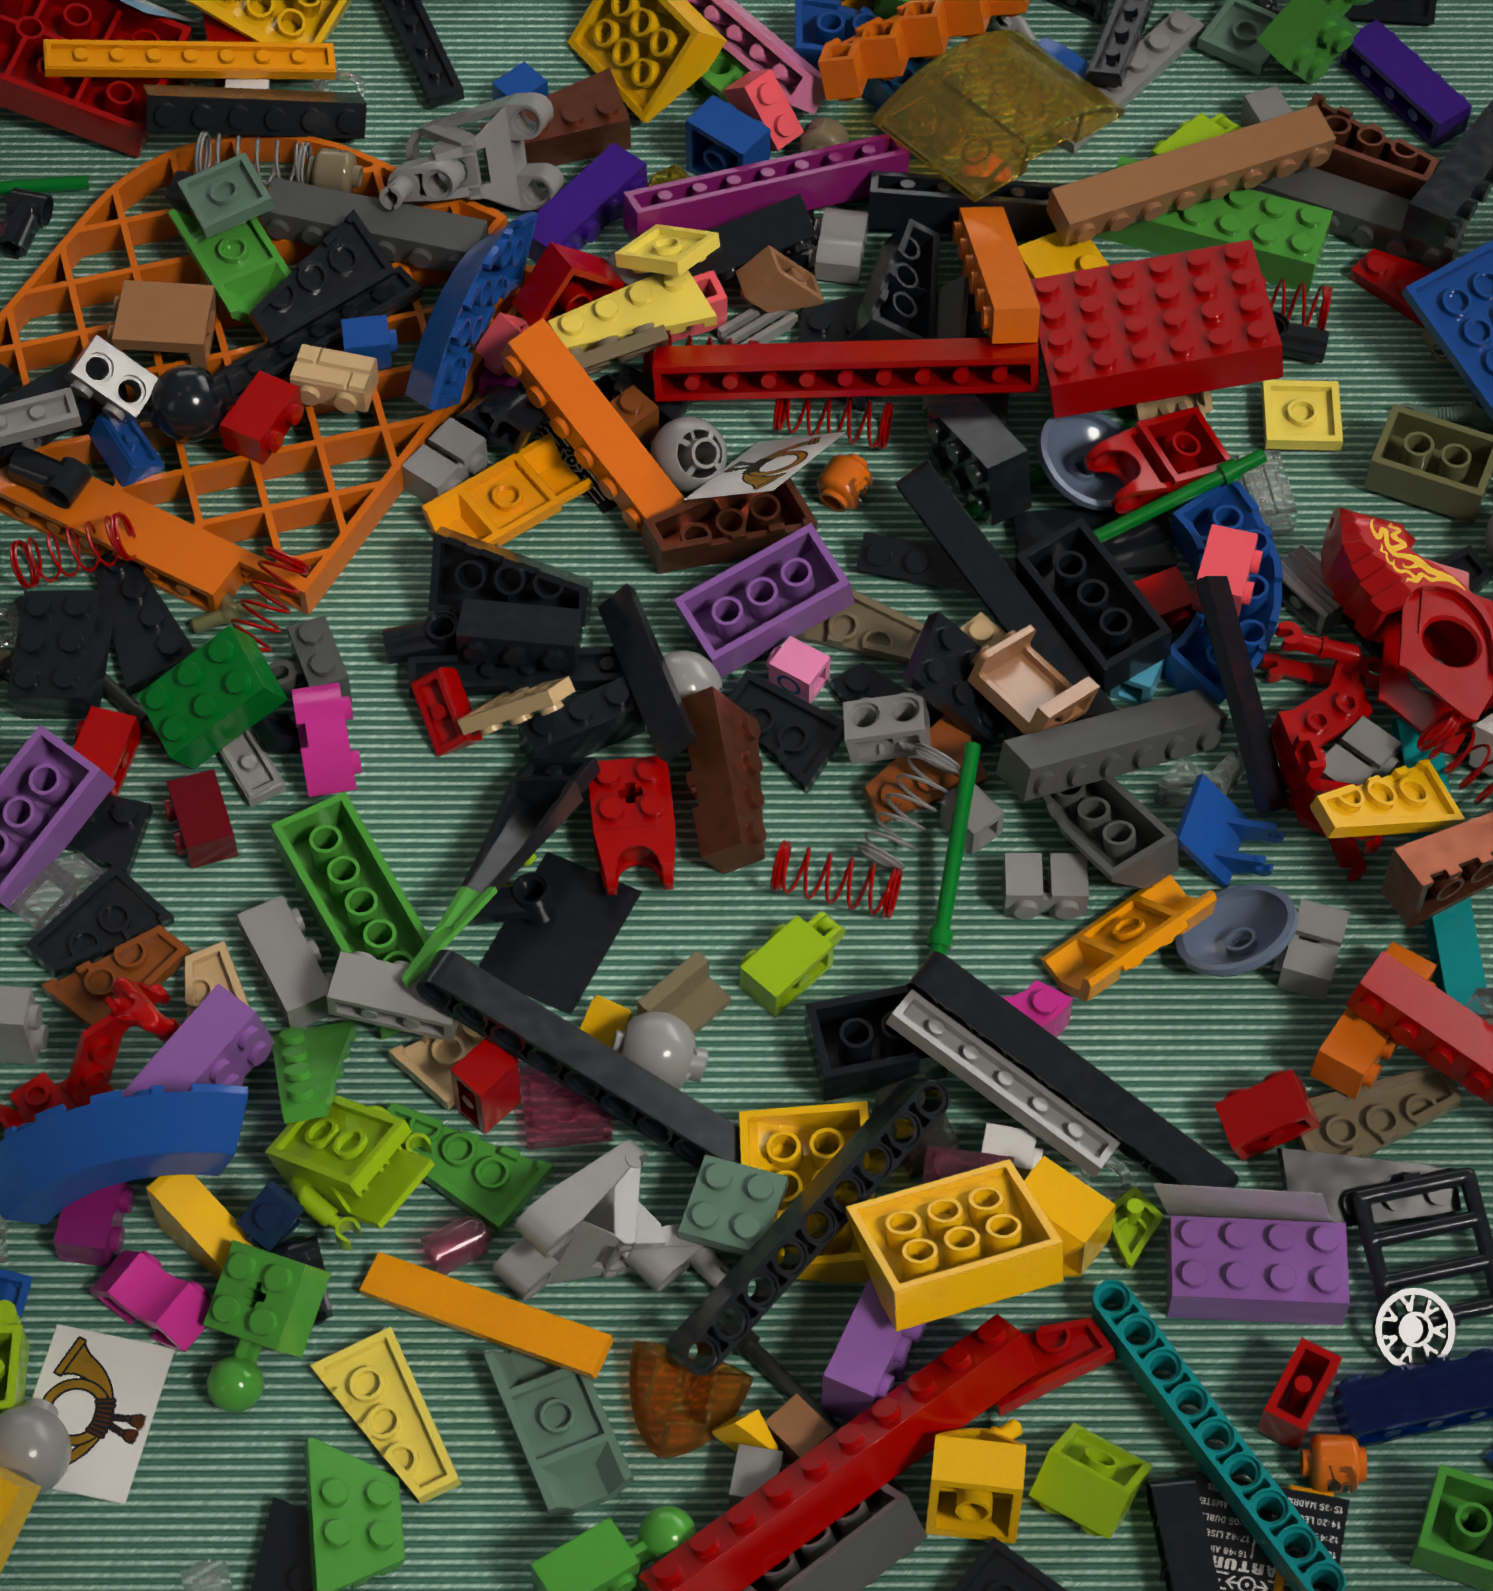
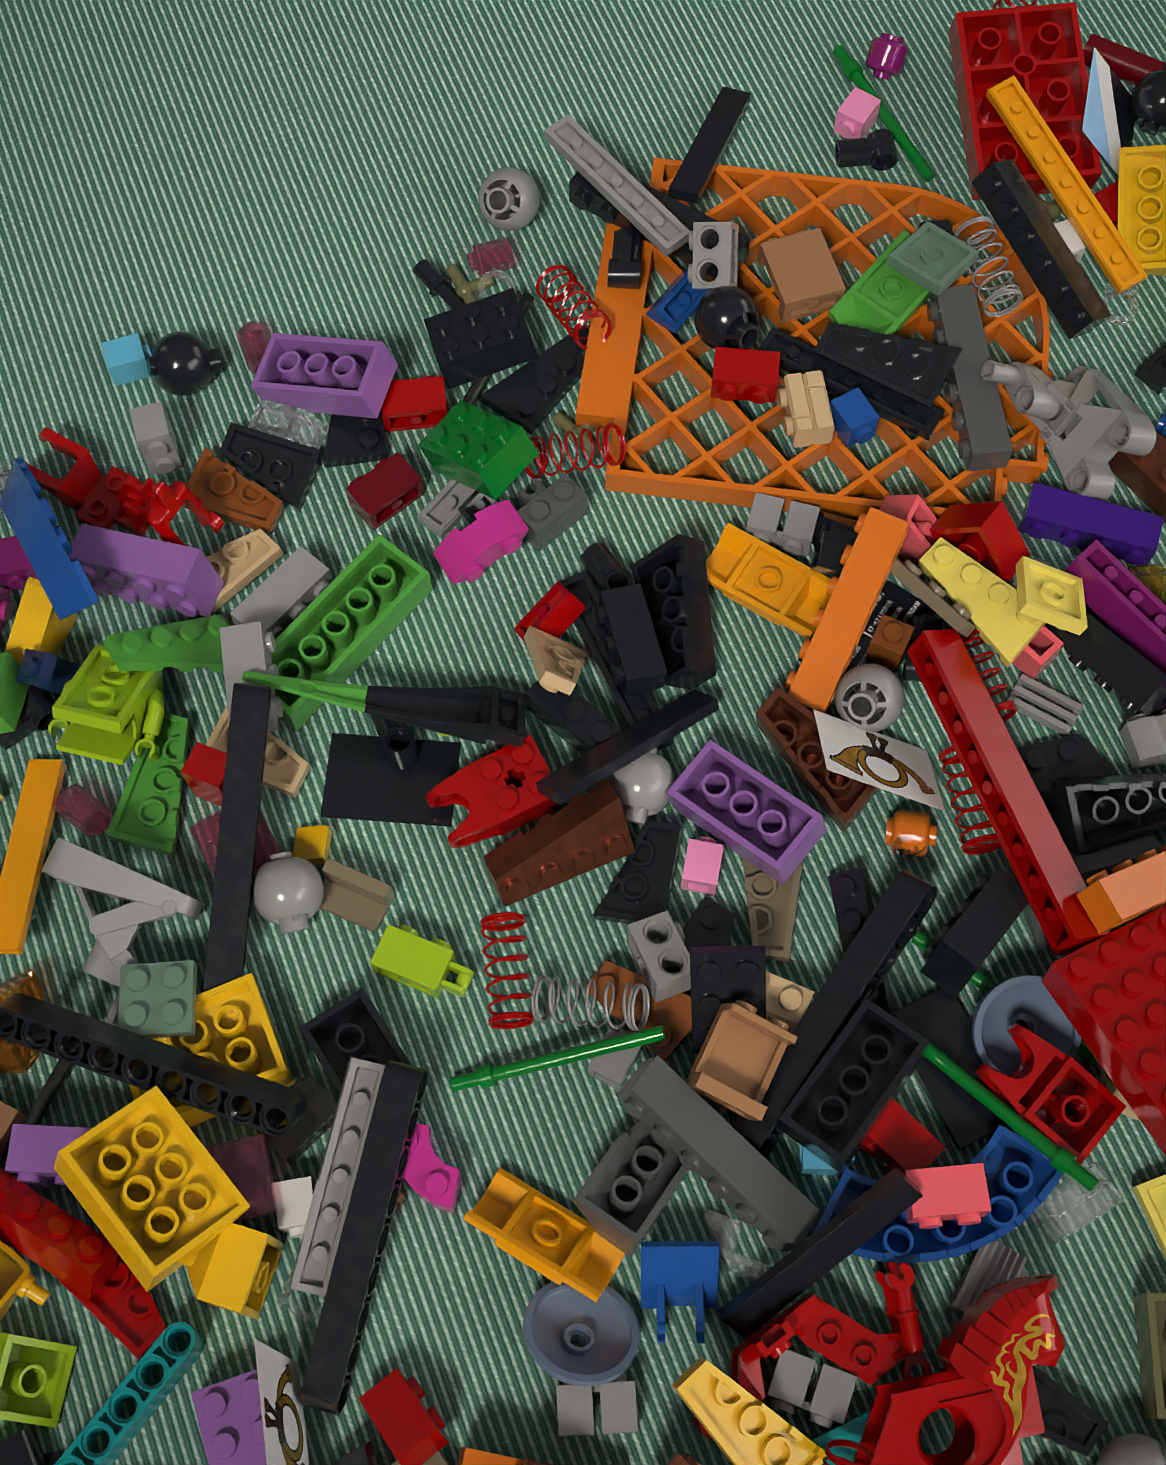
camera: 70 degrees right, 10 degrees up
(334, 170) = (1010, 327): dark tan head -> none
(464, 311) = (910, 469): blue brick -> none
(777, 283) = (1087, 702): medium nougat slope -> none
(1065, 884) = (562, 1129): light grey piece -> none
(1134, 1225) = (275, 1329): lime piece -> none

